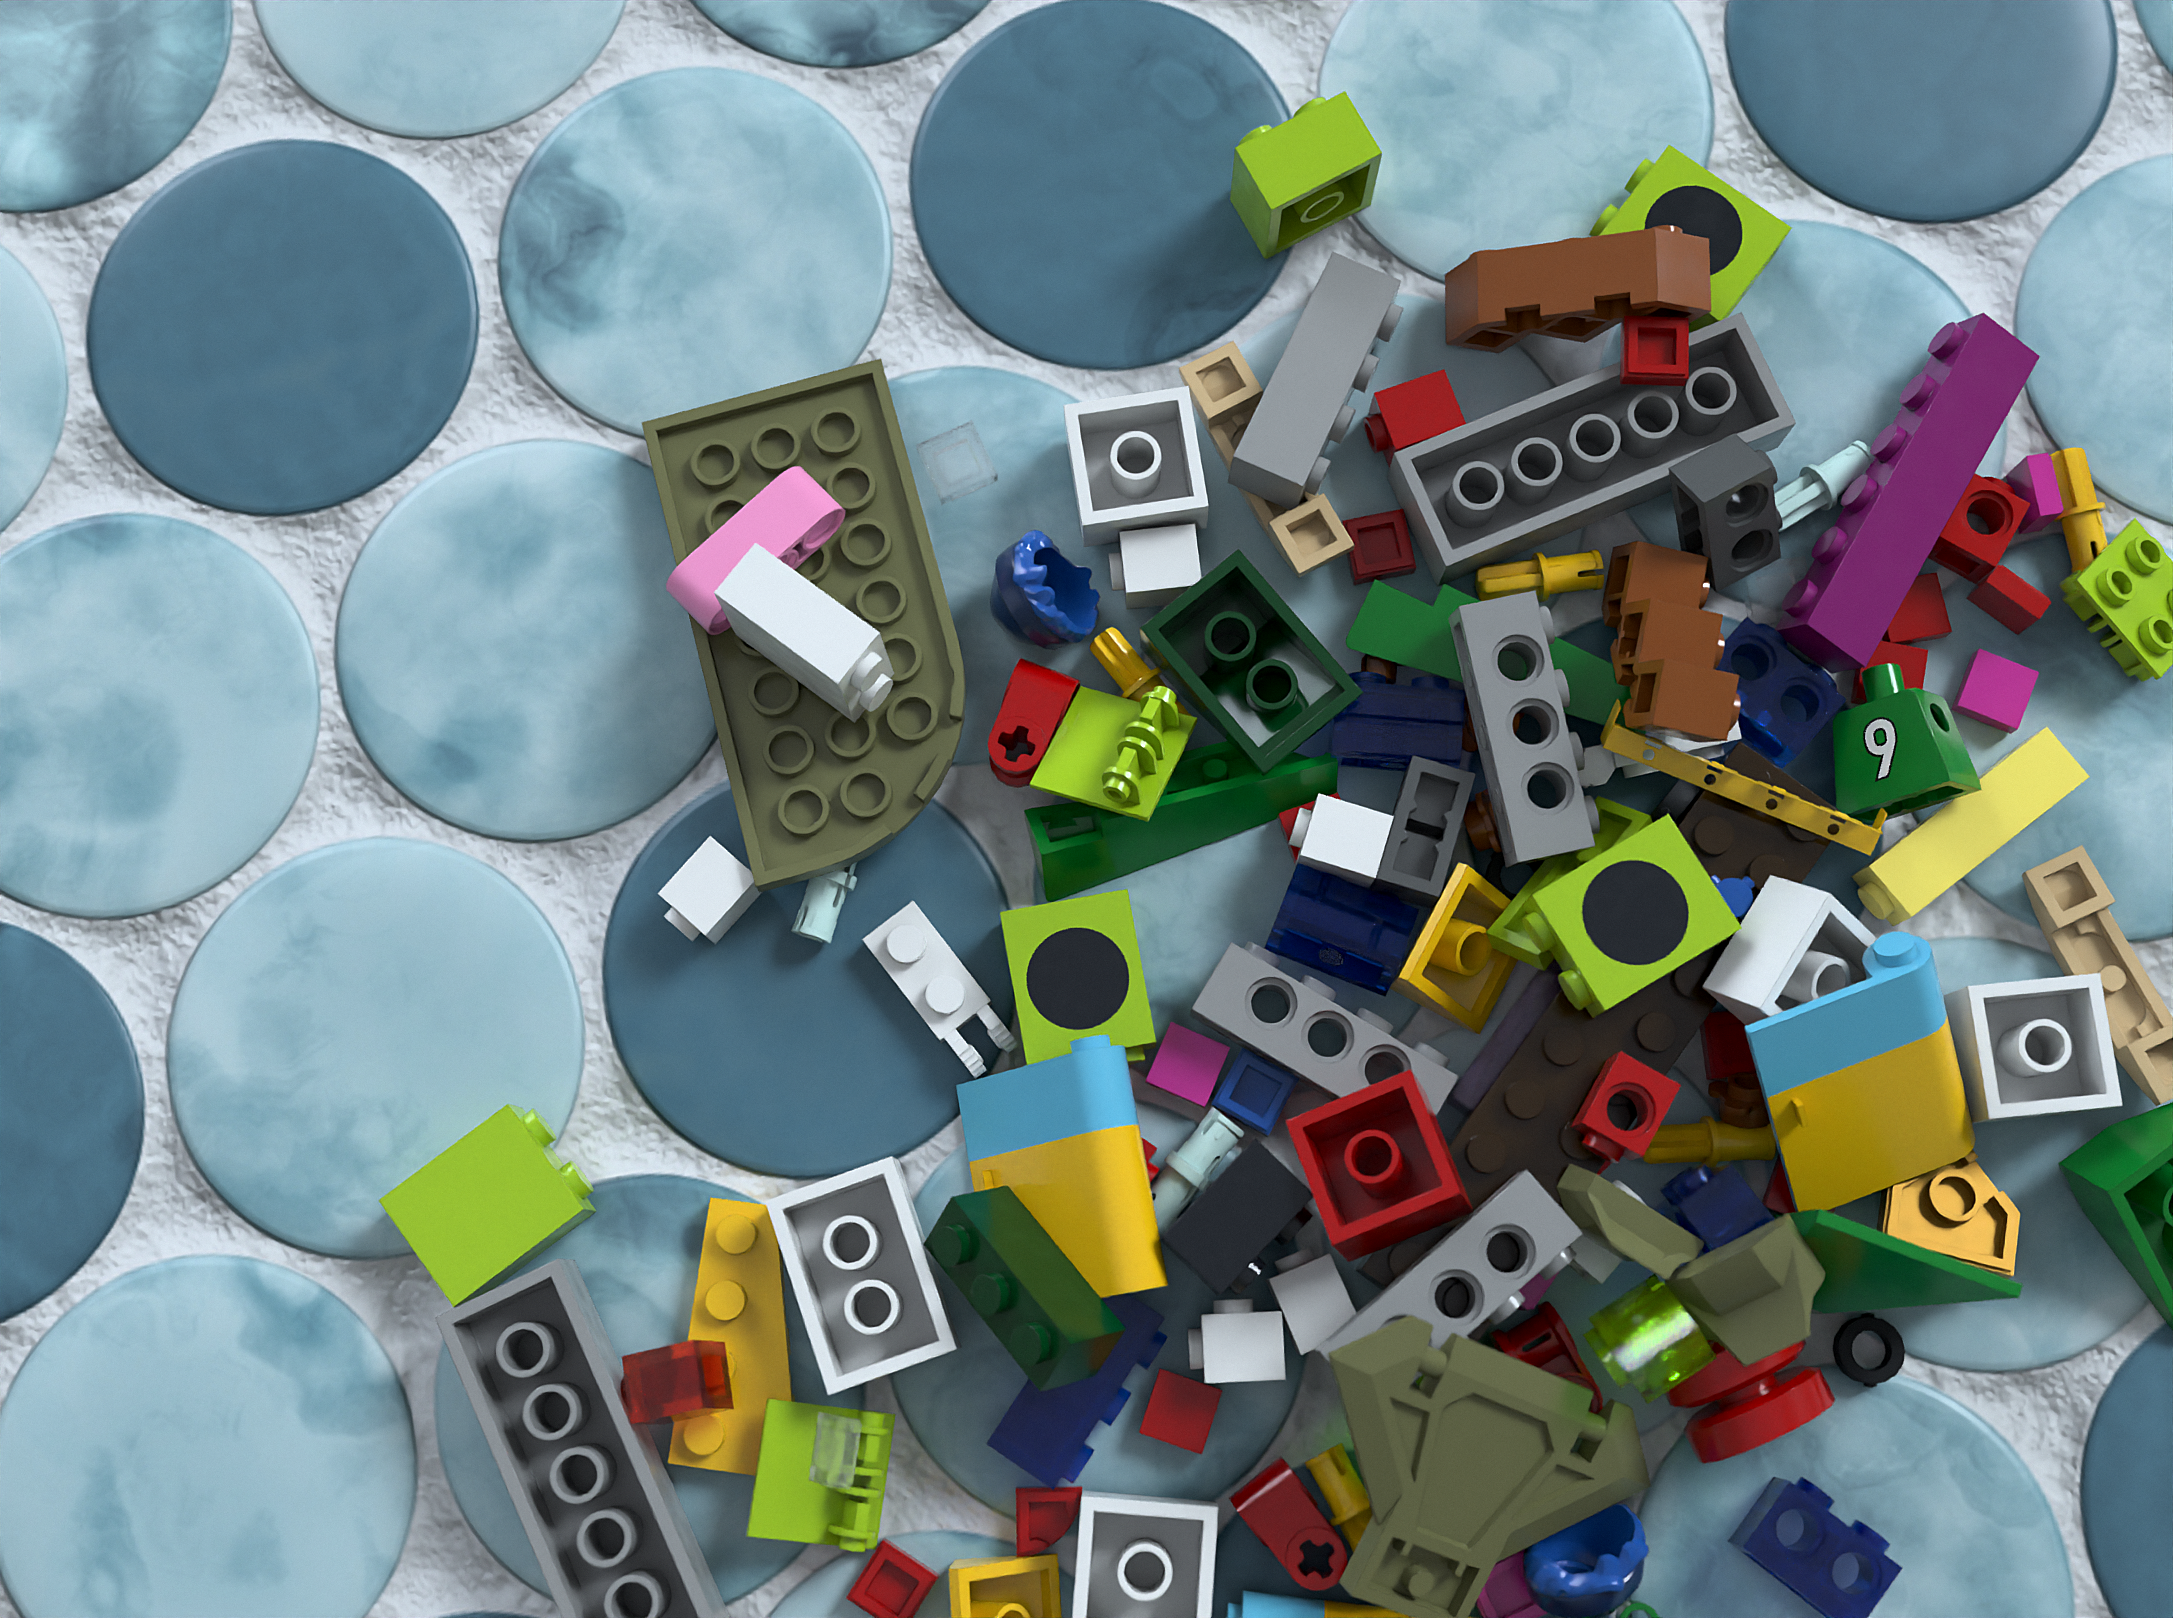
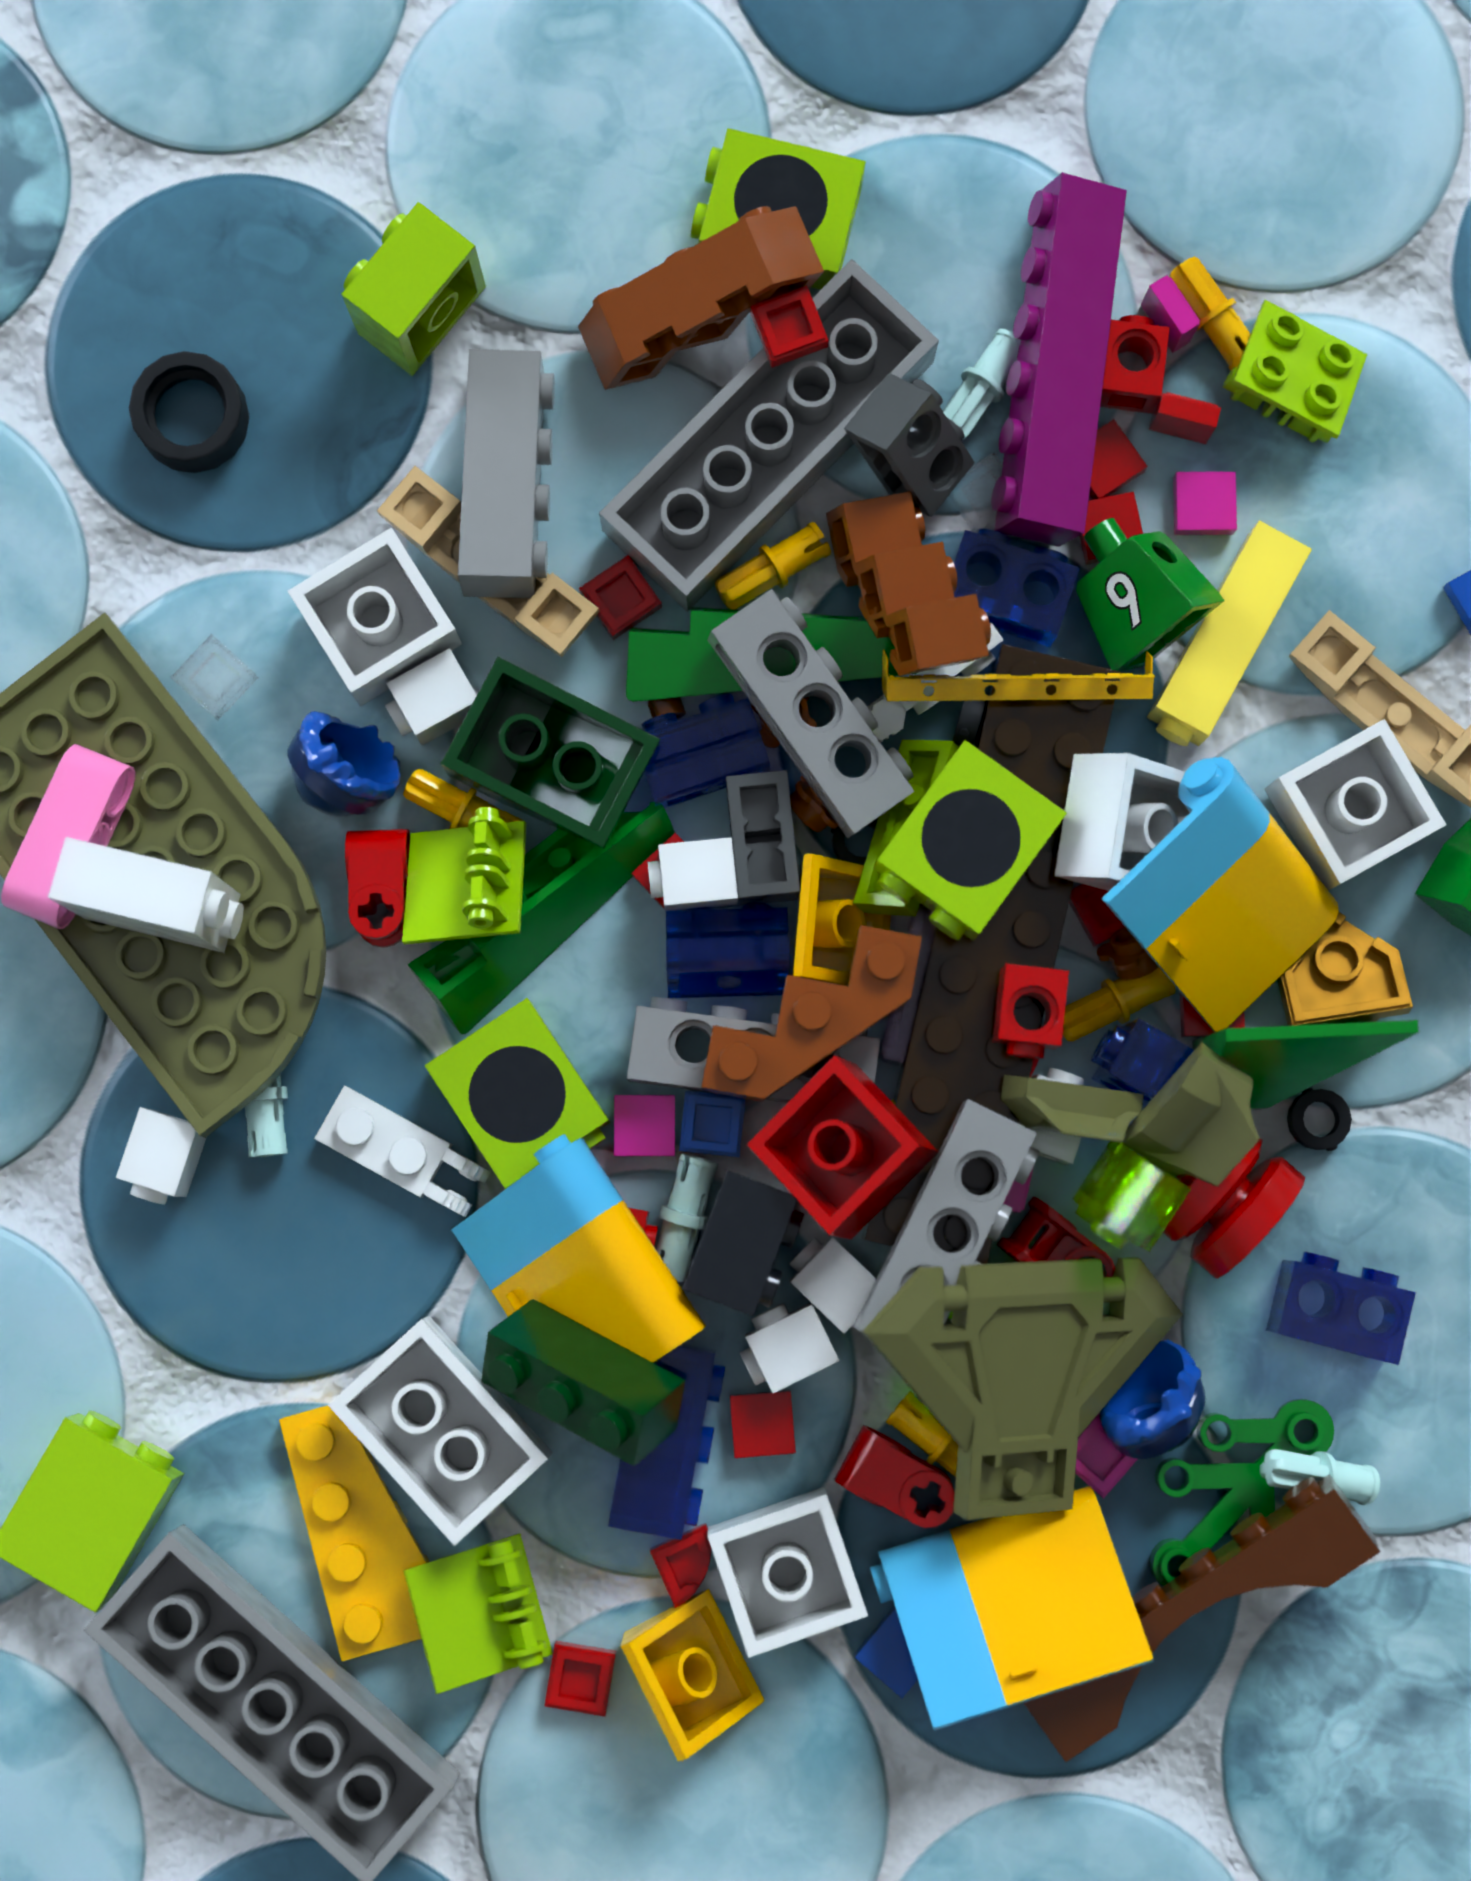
camera: 30 degrees left, 5 degrees up
(676, 1382) = (319, 1591): clear red brick -> none
(835, 1450) = (481, 1589): clear tile -> none
(1033, 163) = (165, 374): none -> black tyre
(1404, 1027) = (815, 1019): none -> dark orange brick
(1411, 413) = (601, 467): red brick -> none
(1736, 894) = (1049, 783): blue piece -> none

